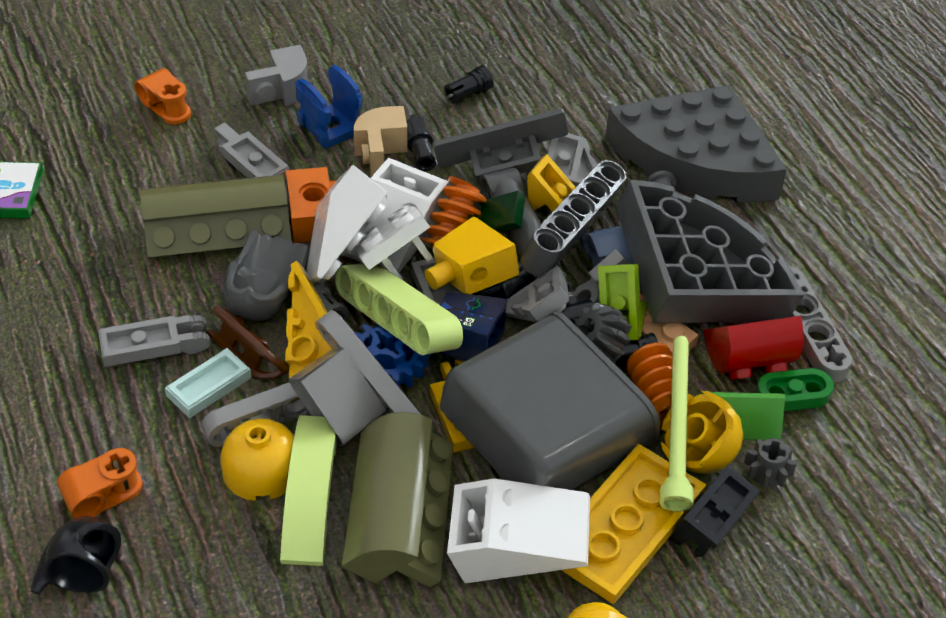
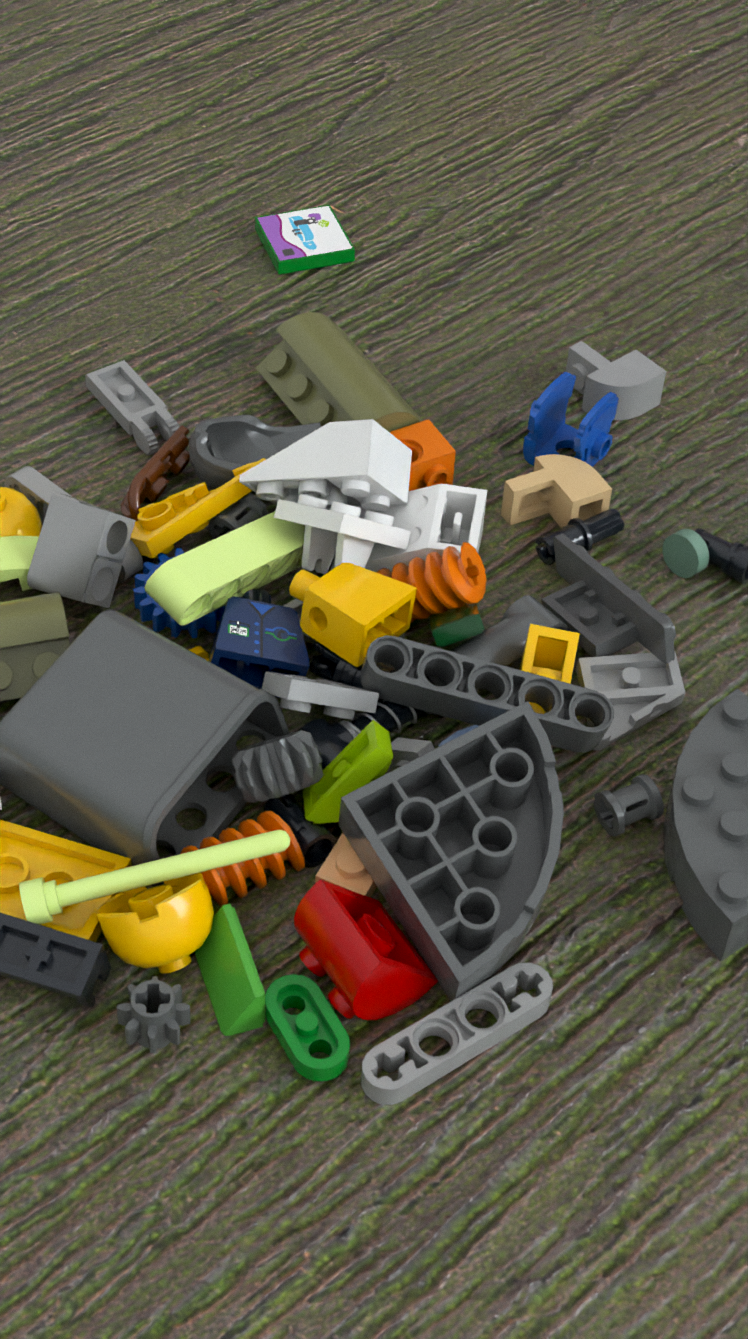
camera: 70 degrees right, 0 degrees up
(164, 96) = (518, 302): orange piece -> none
(208, 383) = (93, 467): light aqua tile -> none
(248, 153) = (458, 395): light grey hinge -> none
(340, 335) = (138, 523): light grey beam -> none
(462, 99) = (685, 553): none -> sand green tile

